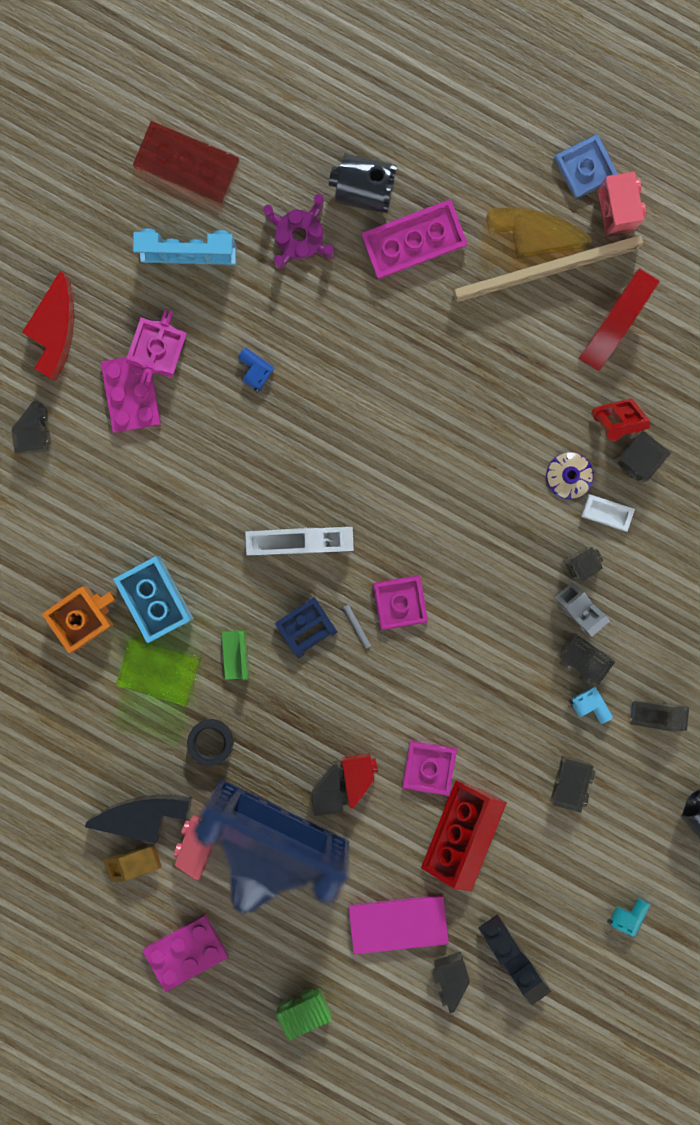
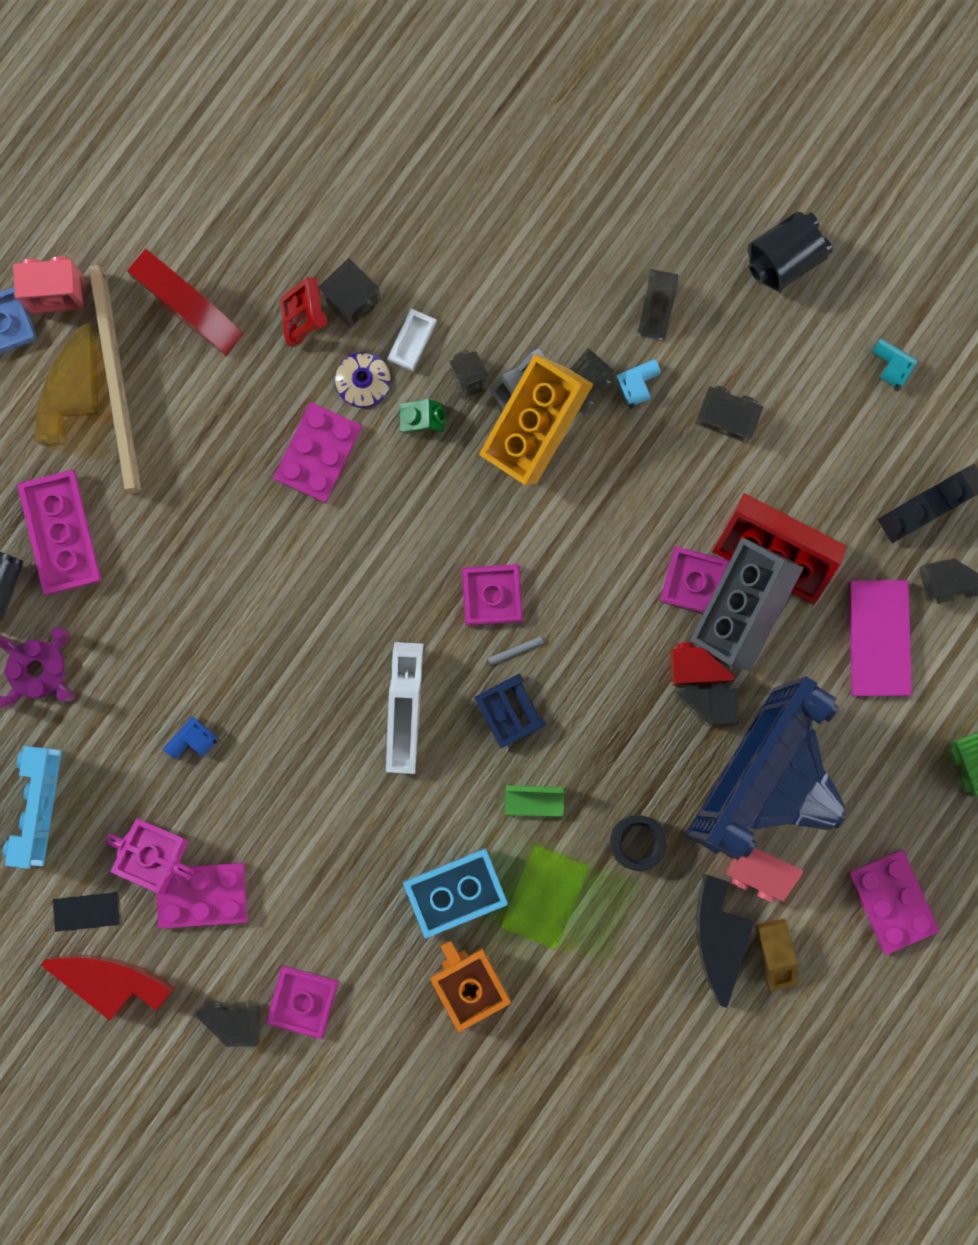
camera: 85 degrees left, 5 degrees down
(55, 484) = (302, 1002): none -> dark pink tile
(108, 301) = (86, 911): none -> black sticker
(413, 813) = (746, 604): none -> dark grey slope
(504, 445) = (317, 452): none -> dark pink plate
(543, 528) = (422, 416): none -> green bracket
(549, 624) = (535, 419): none -> light orange slope

